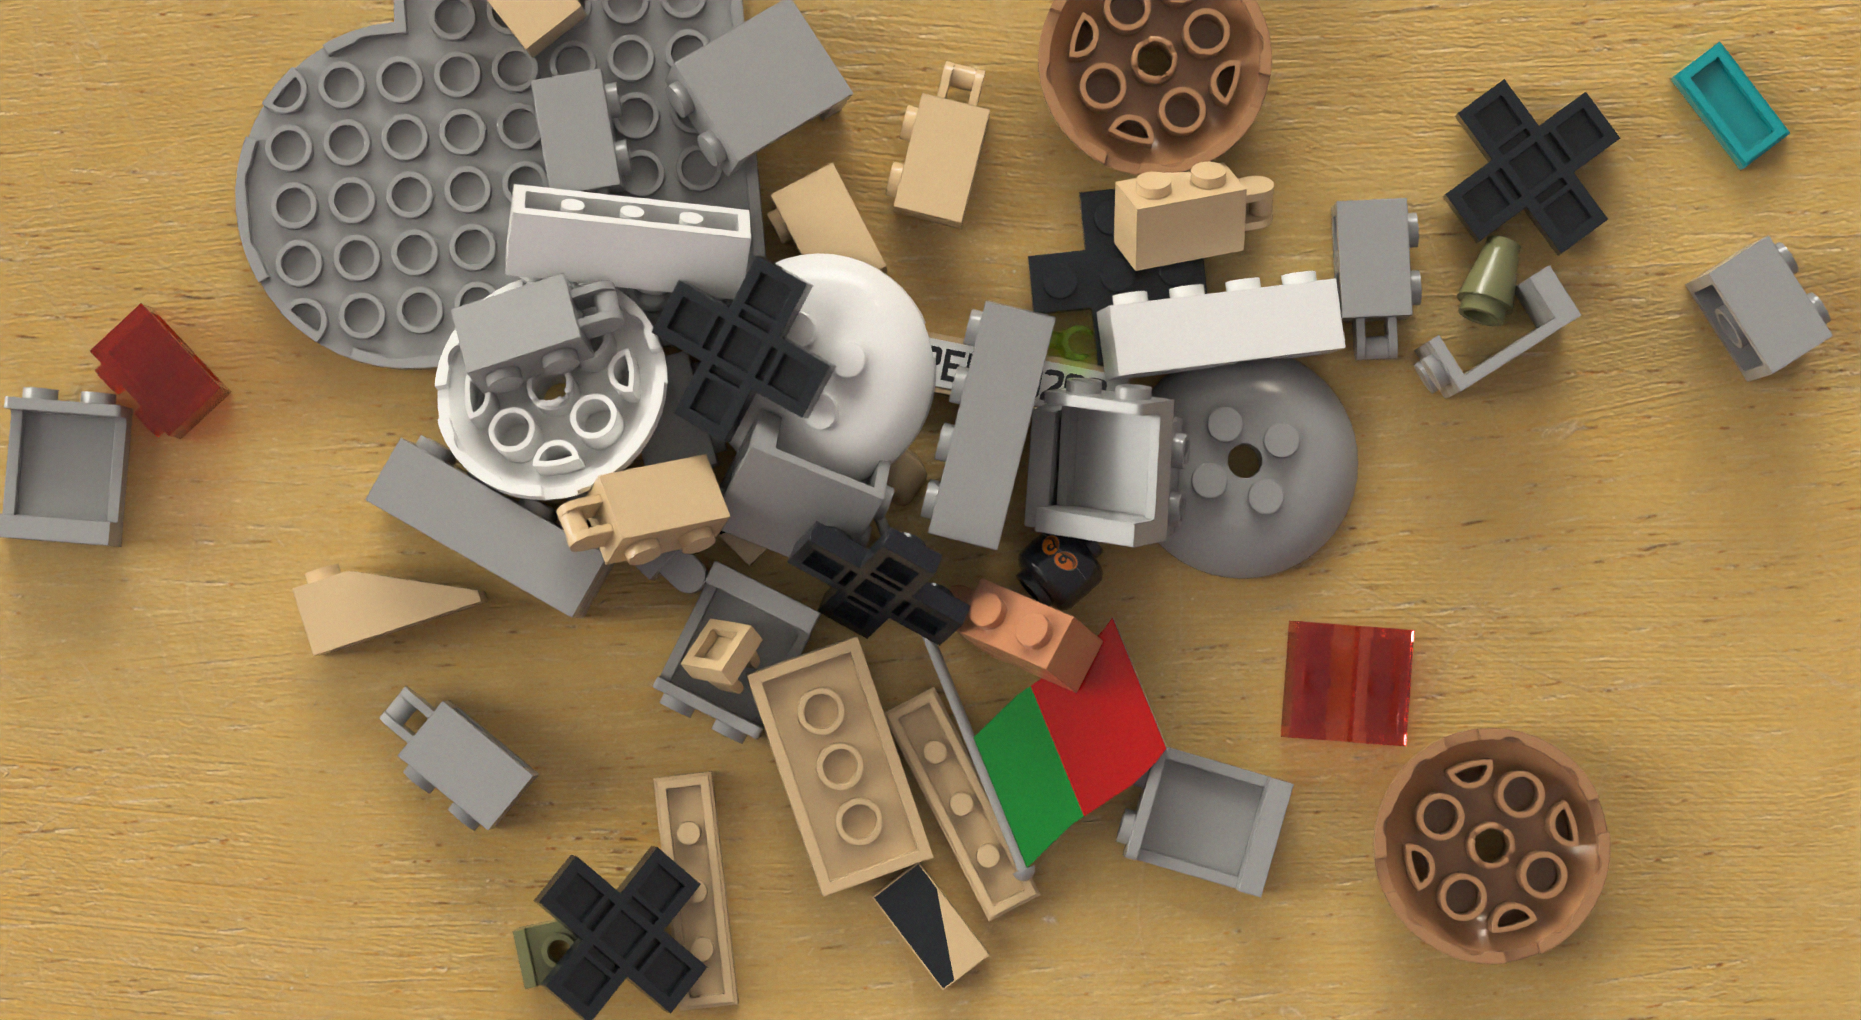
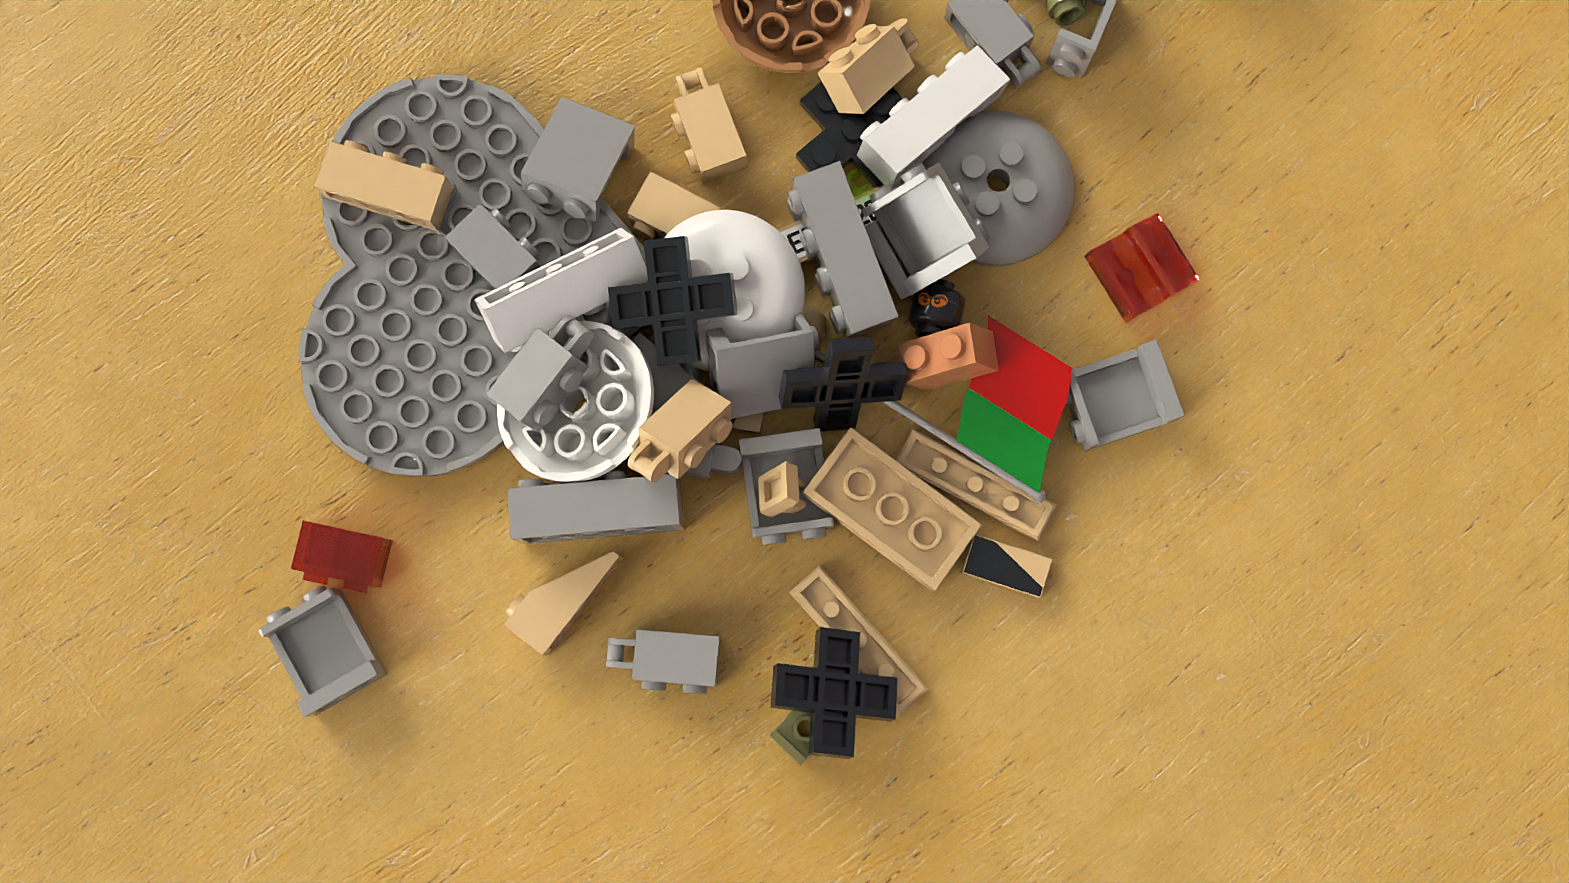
camera: 40 degrees left, 5 degrees down
(1549, 859) = (1320, 274): medium nougat brick -> none

